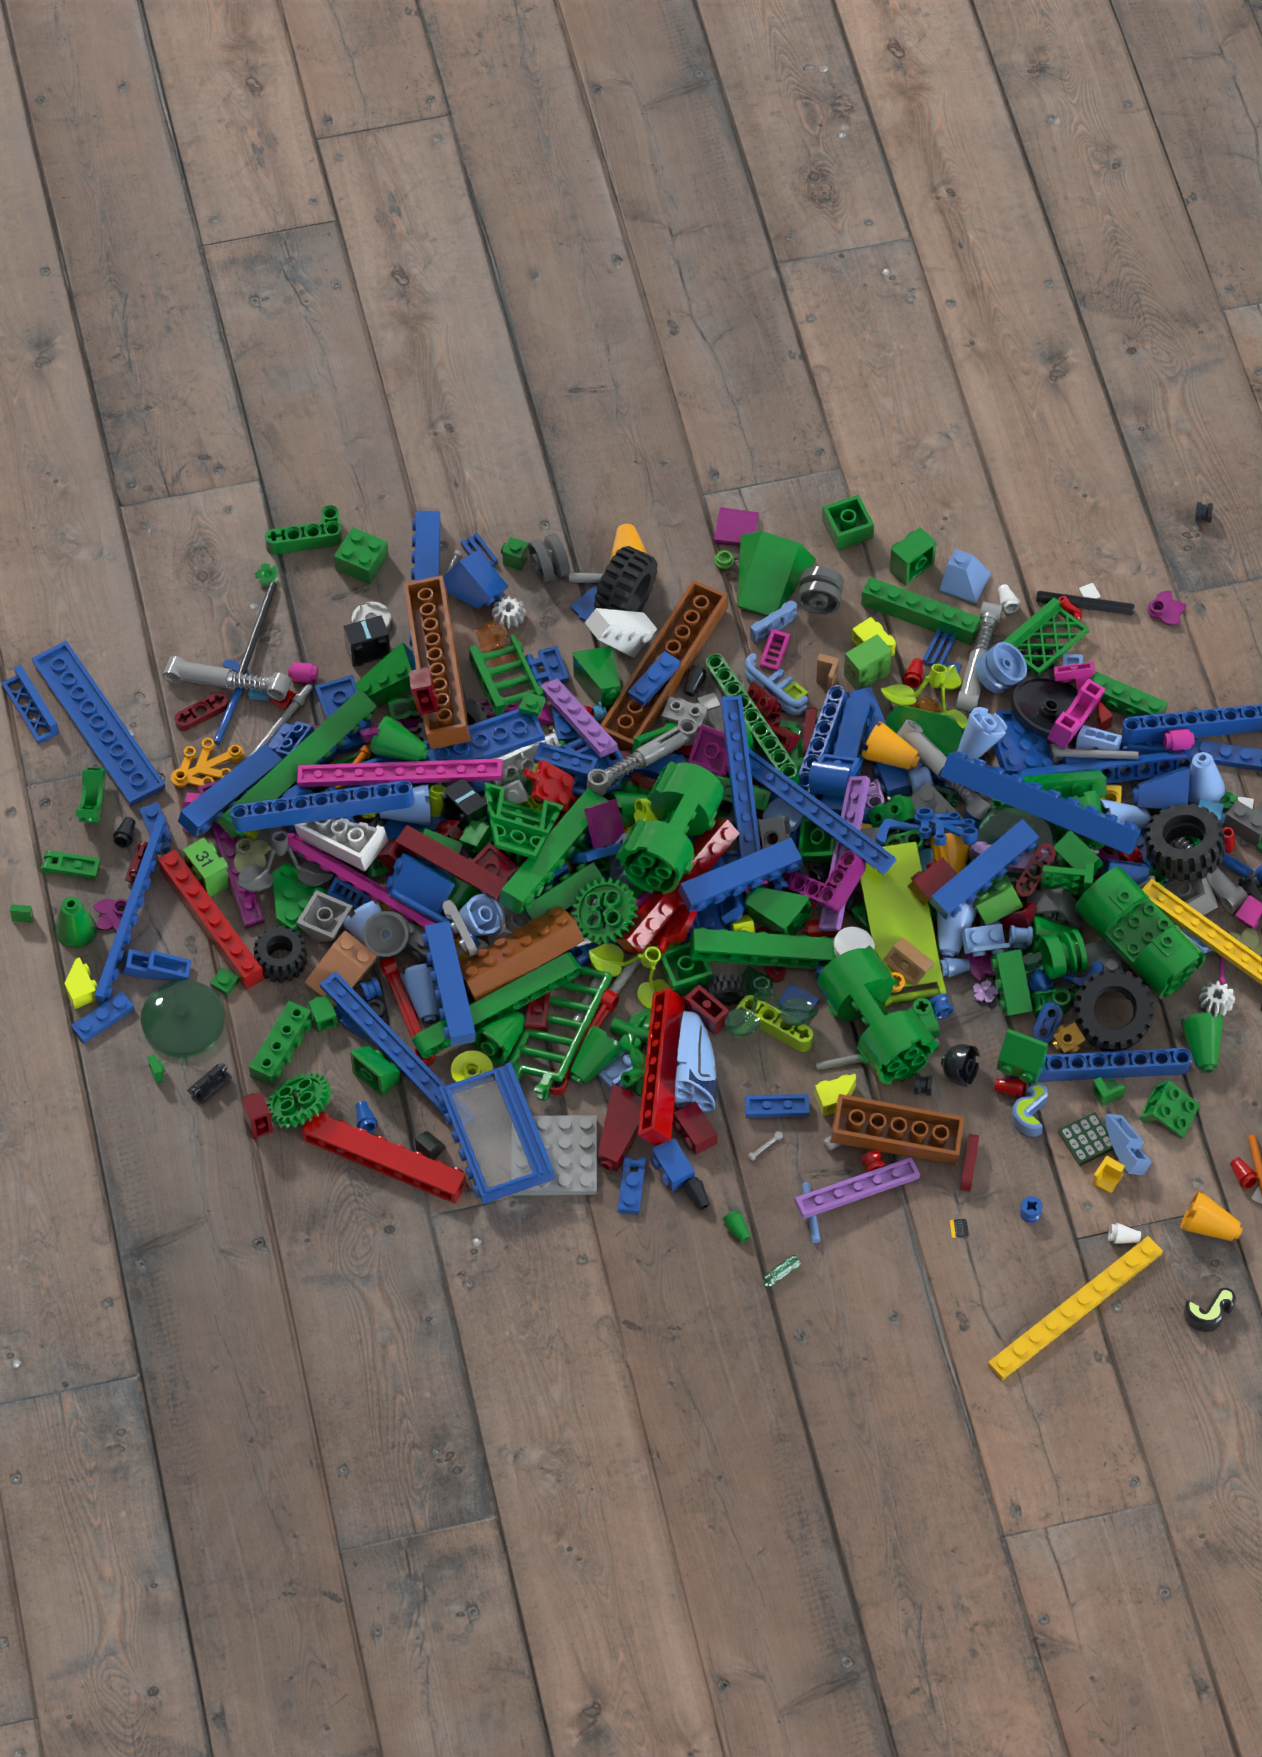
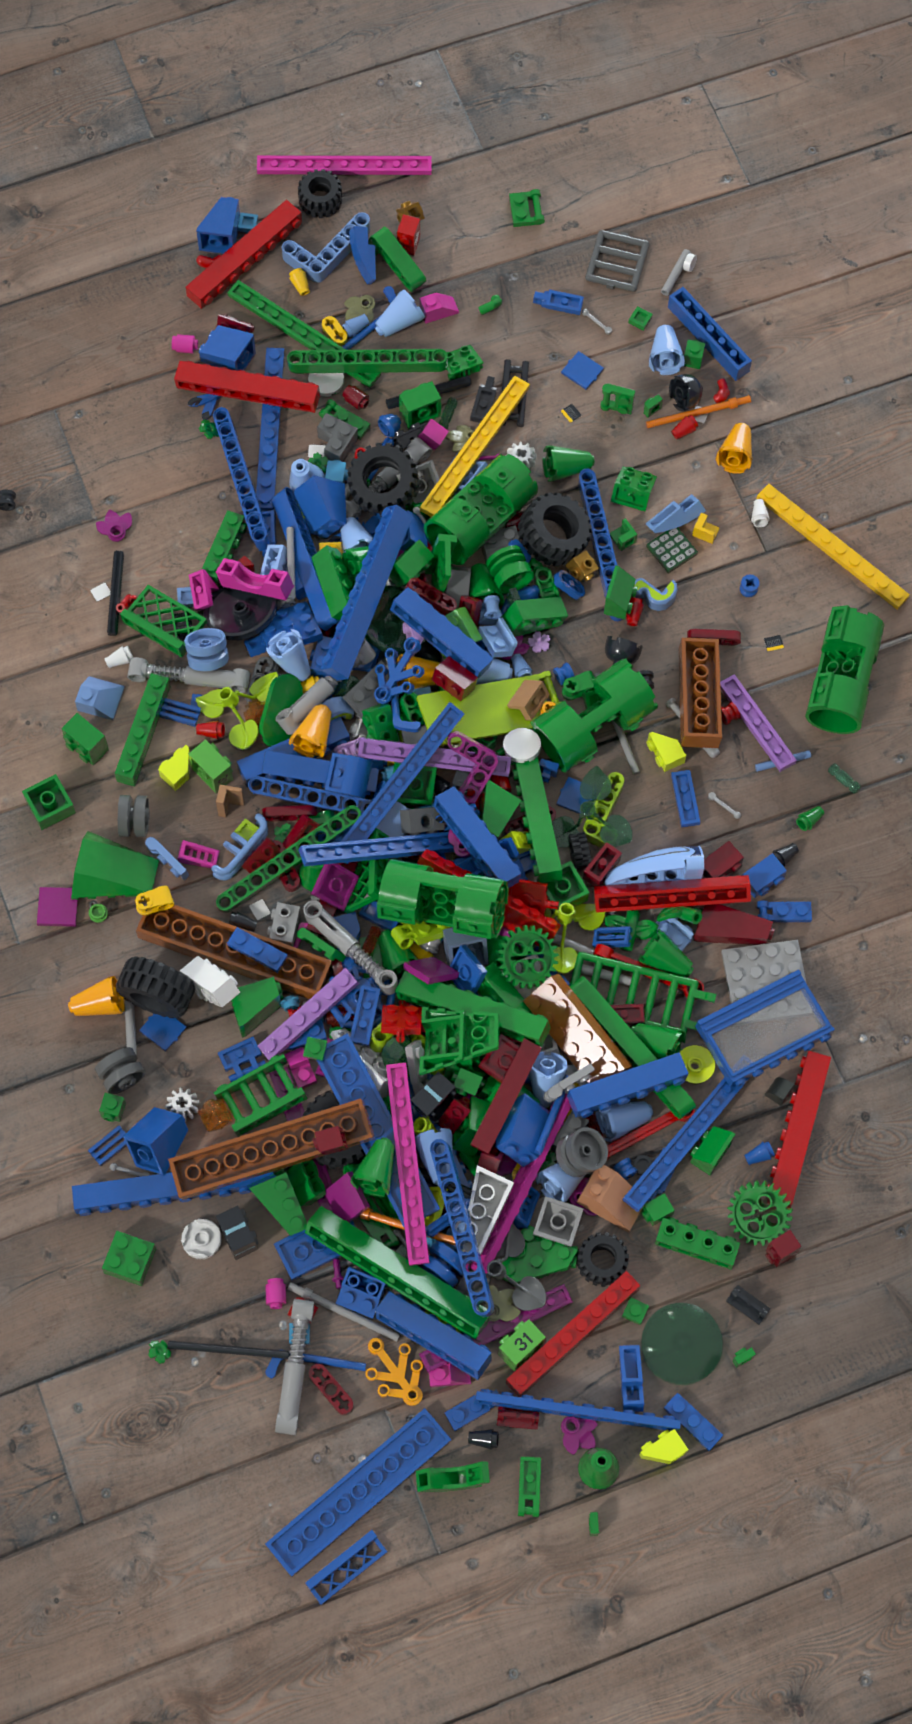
camera: 100 degrees left, 10 degrees up
(299, 537) = (107, 1321): green beam -> none
(622, 1018) = (622, 940): none -> blue tile
(718, 591) = (156, 900): none -> yellow piece
(872, 1264) = (844, 670): none -> green cylinder
(1178, 740) = (266, 499): dark pink brick -> none
(1213, 1316) = (820, 440): black animal -> none

